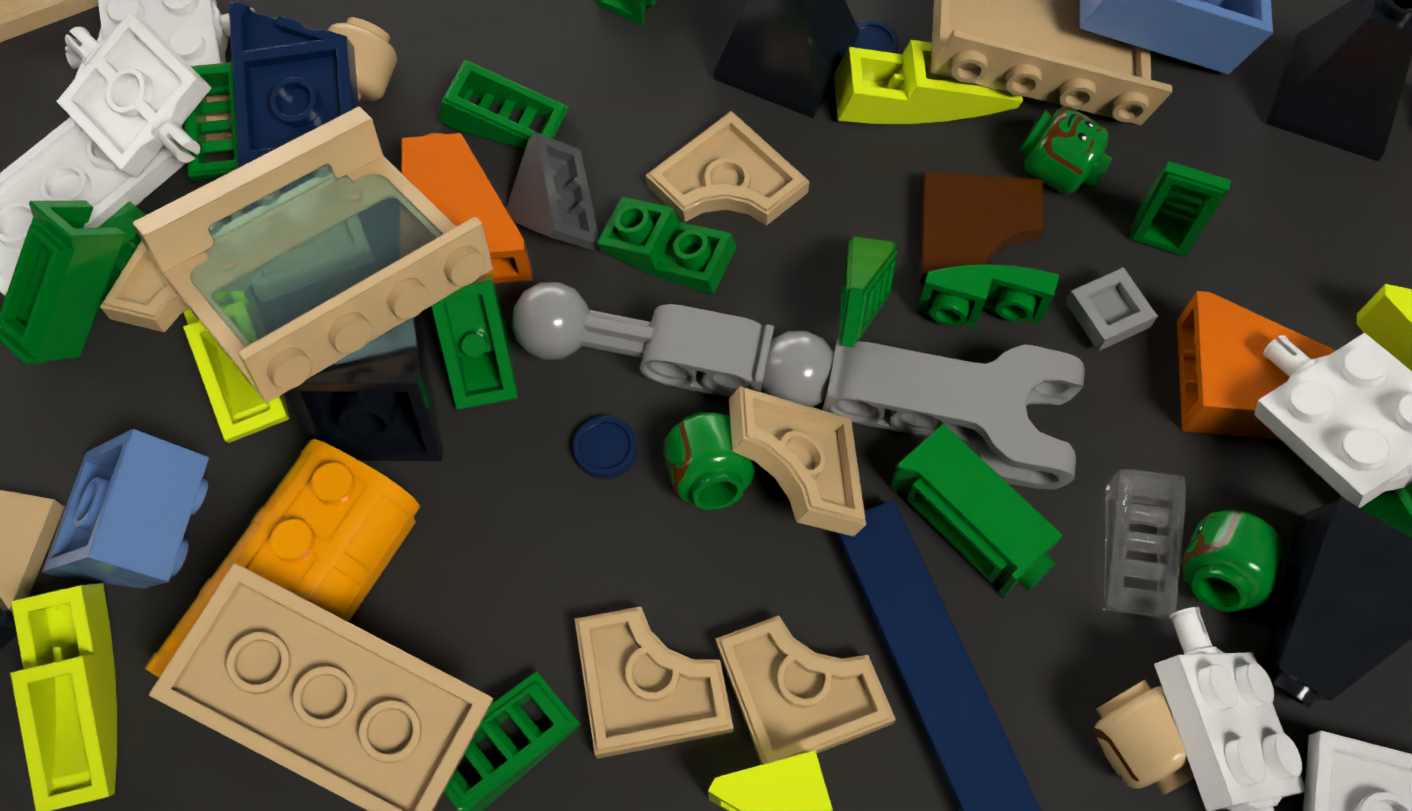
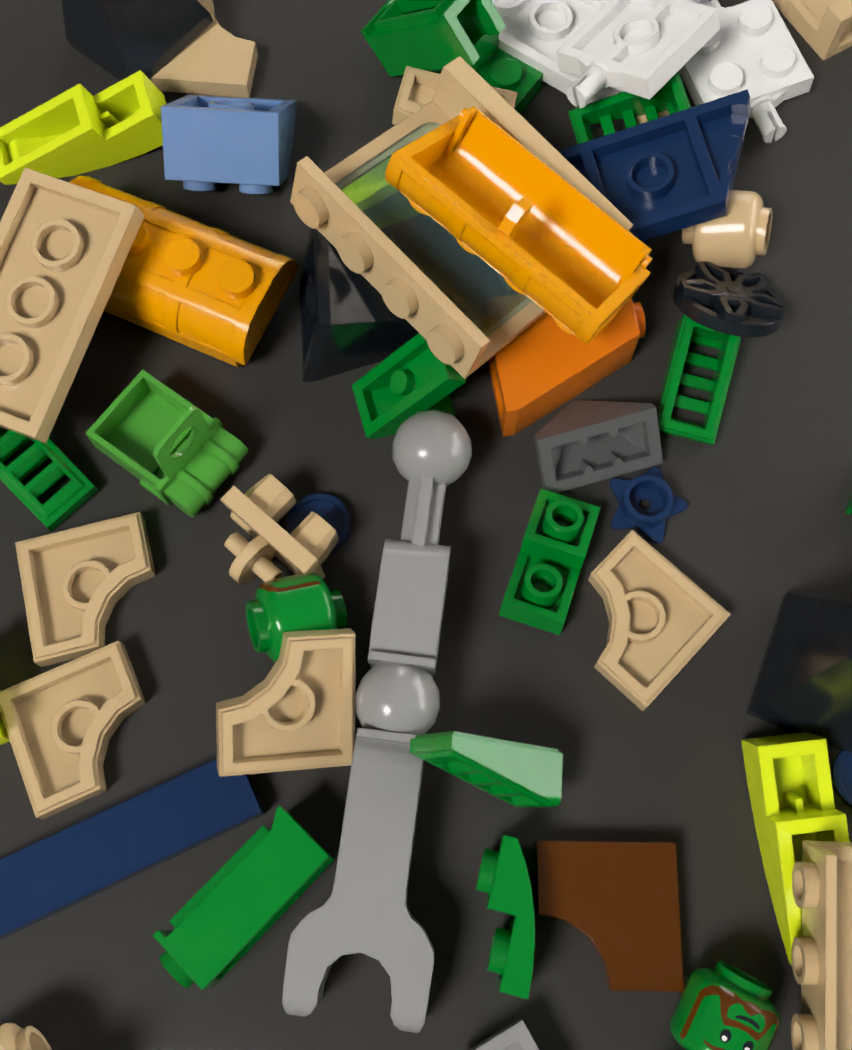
camera: 85 degrees right, 5 degrees up
(340, 188) = (522, 221): none -> light orange container
(432, 69) = (727, 299): none -> black wheel
(501, 586) = (167, 444): none -> bright green piece
(598, 494) = (258, 515): none -> tan hips
(614, 154) = (655, 491): none -> dark blue plate

